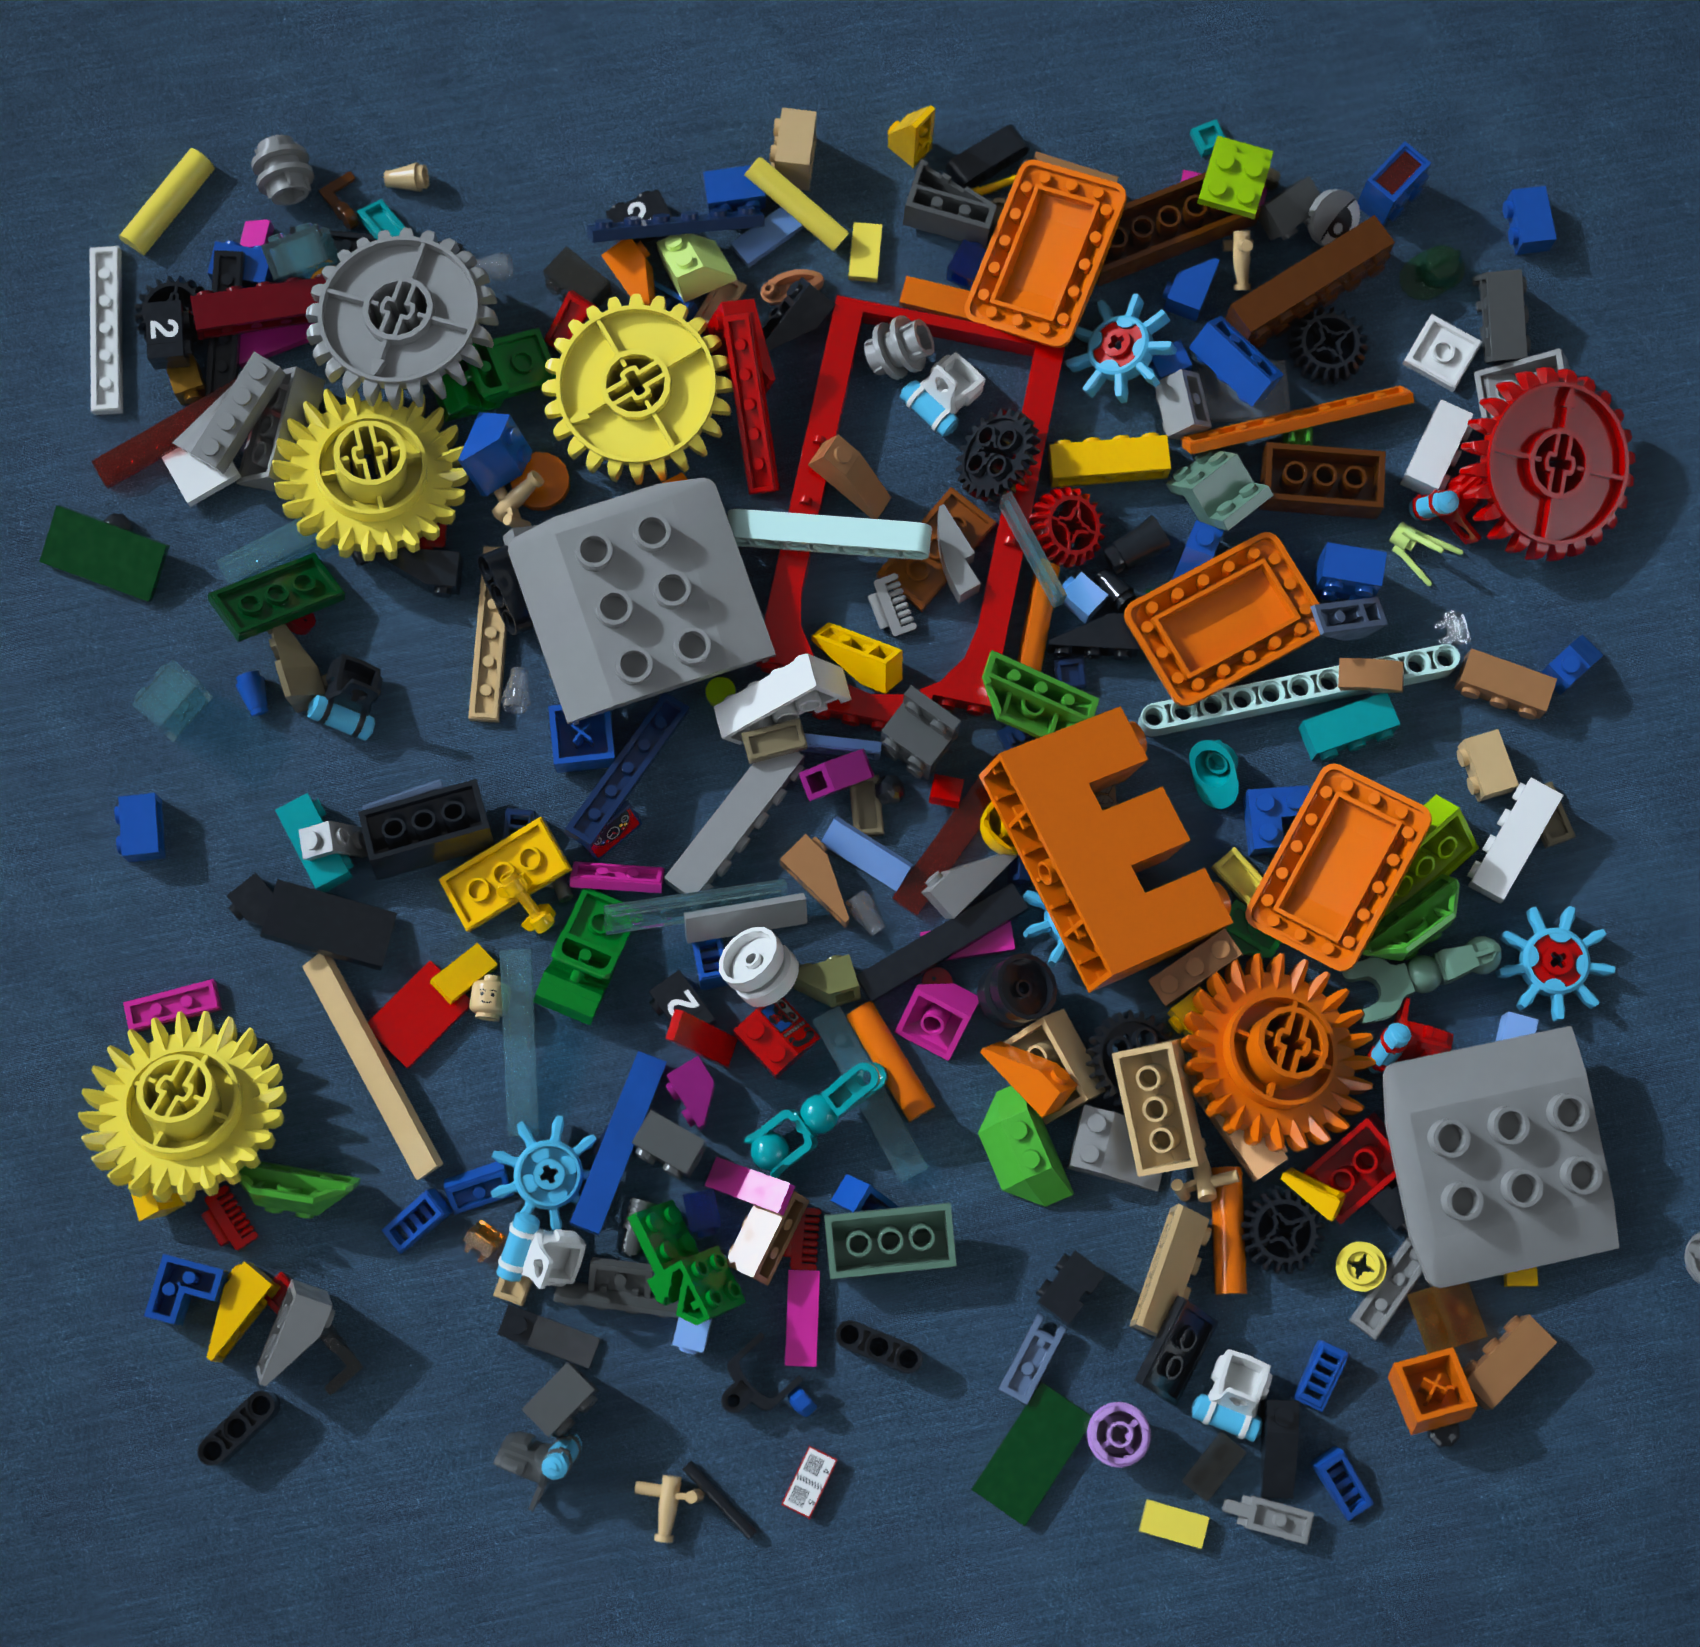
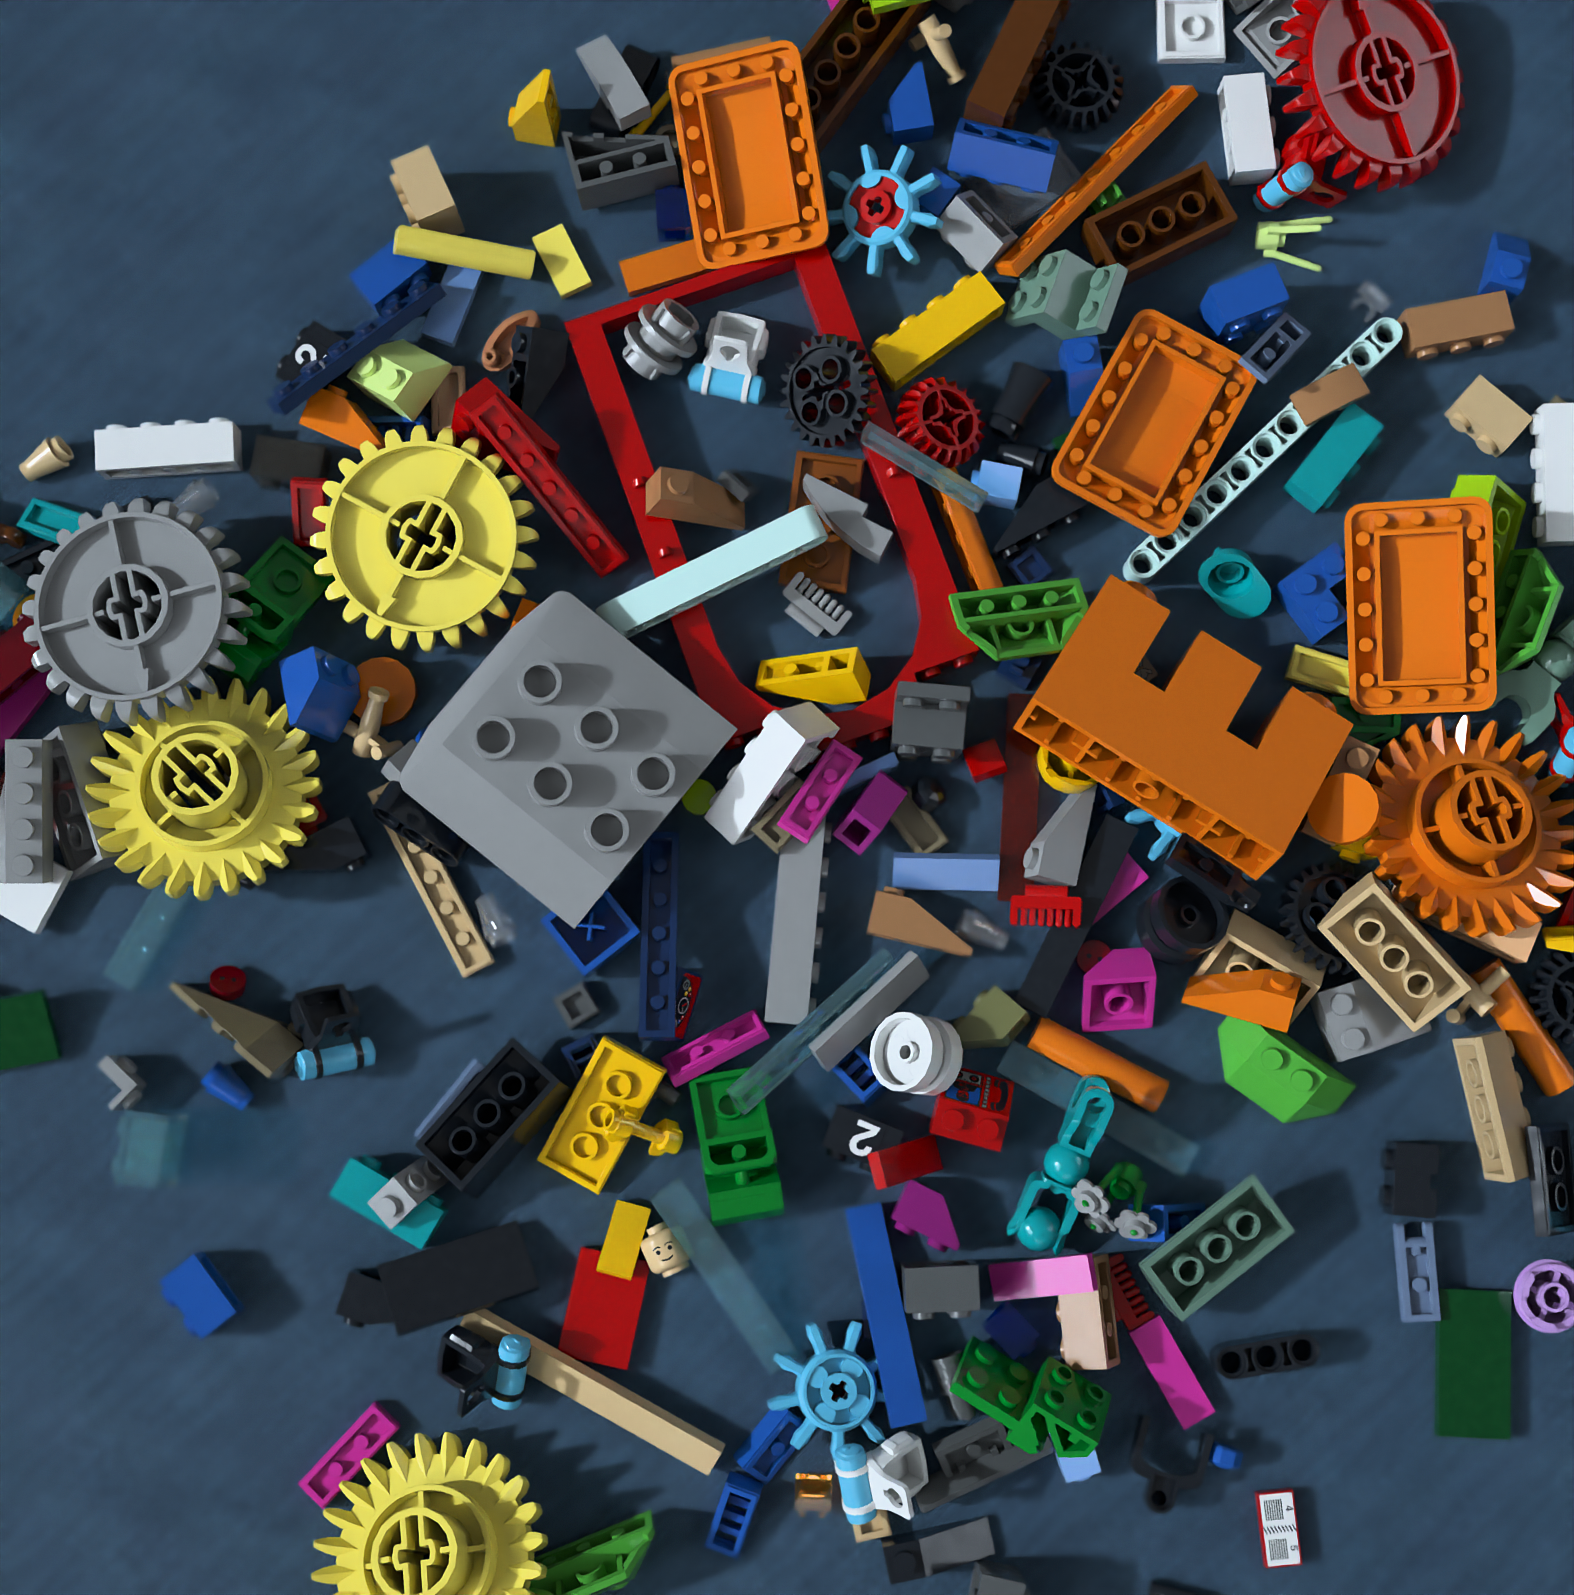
camera: 30 degrees left, 5 degrees up
(185, 637) = (122, 1073): none -> light grey bracket
(276, 596) = (189, 976): dark green tile -> none
(306, 1000) = (484, 1368): none -> black piece
(497, 220) = (168, 449): none -> white brick
(537, 788) = (576, 1005): none -> dark grey tile
(808, 735) = (819, 791): none -> dark pink tile
(855, 1157) = (1124, 1182): none -> plant
(891, 485) = (738, 485): none -> dark grey tile
(924, 915) = (1046, 898): none -> red piece
(981, 145) = (614, 82): none -> light grey slope
(1058, 967) = (1211, 873): none -> black hinge
(1185, 978) = (1345, 809): none -> orange tile

